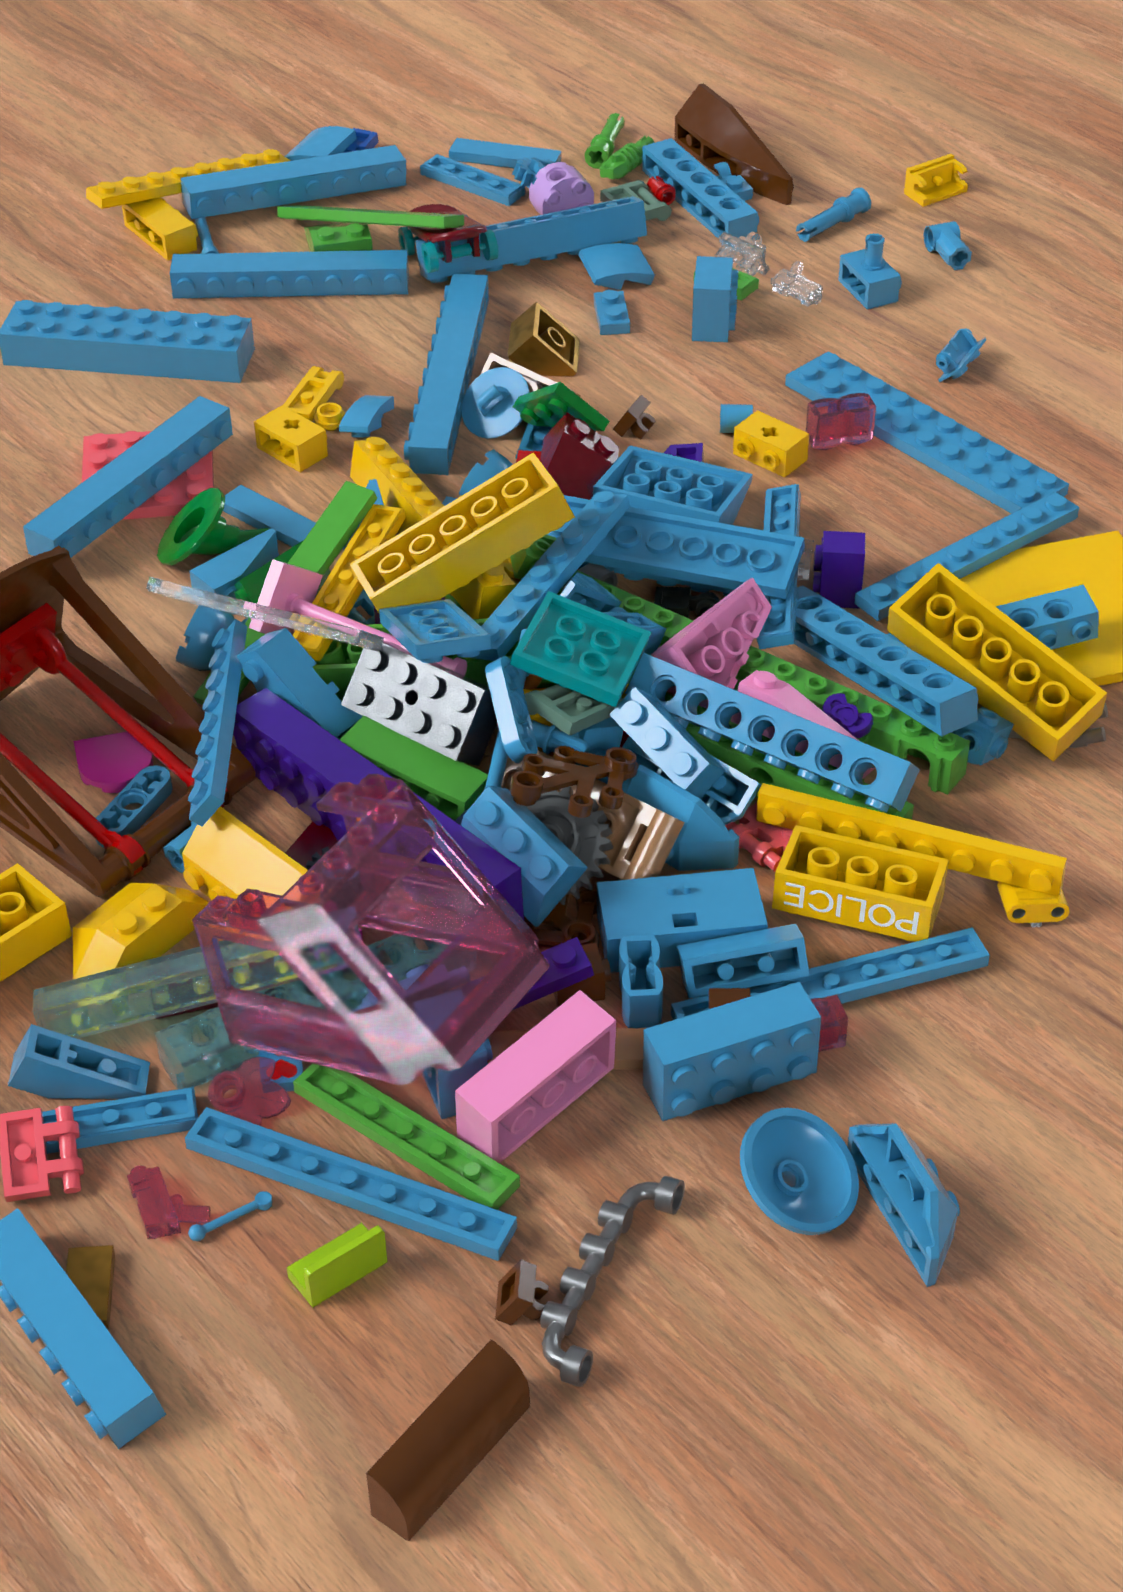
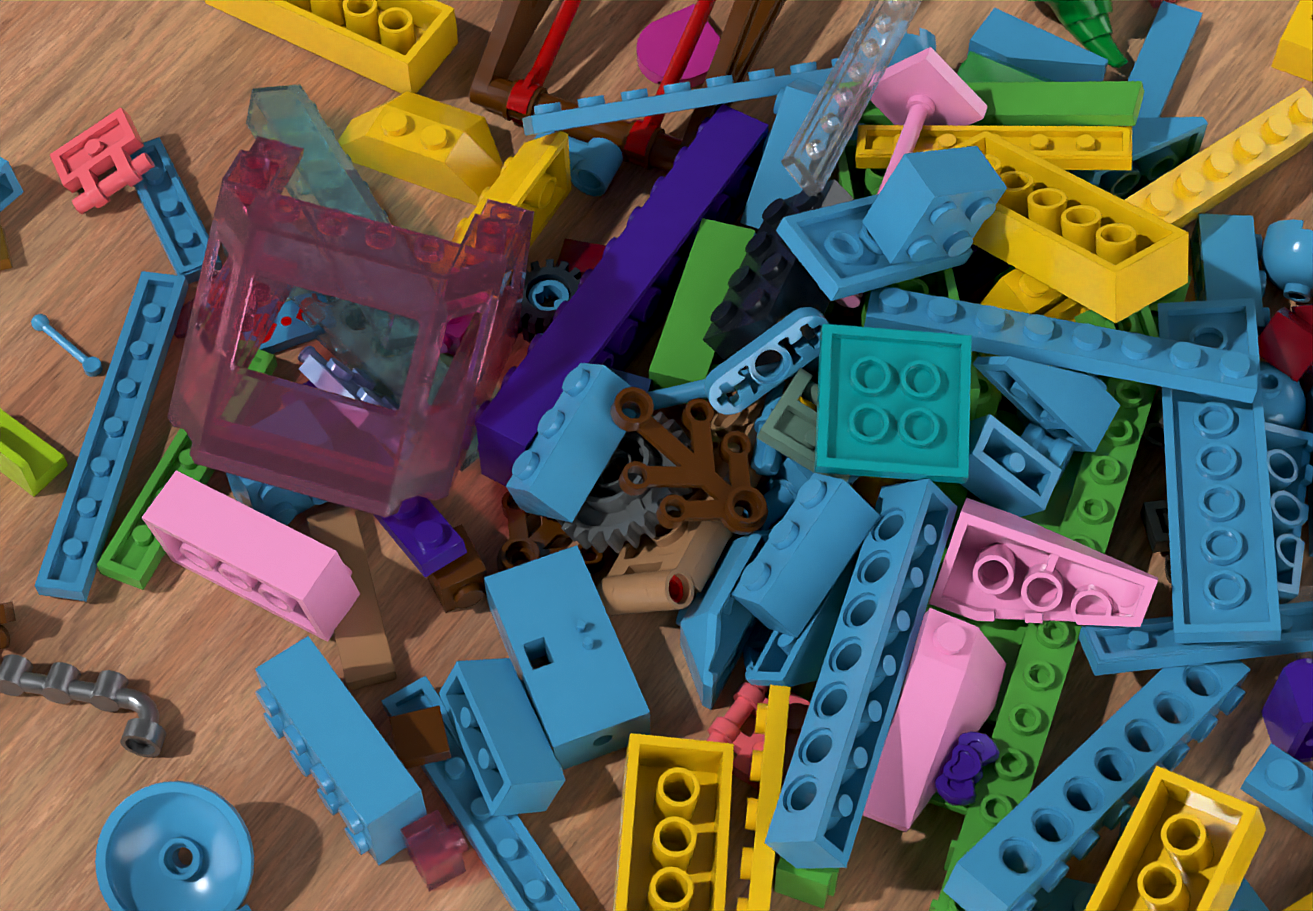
camera: 75 degrees right, 15 degrees up
(74, 1069) = (212, 141): dark azure slope -> none
(137, 791) = (603, 74): dark azure beam -> none
(156, 1208) = (64, 281): clear pink piece -> none
(435, 577) = (934, 204): none -> dark azure brick
(640, 981) = (446, 632): dark azure brick -> none

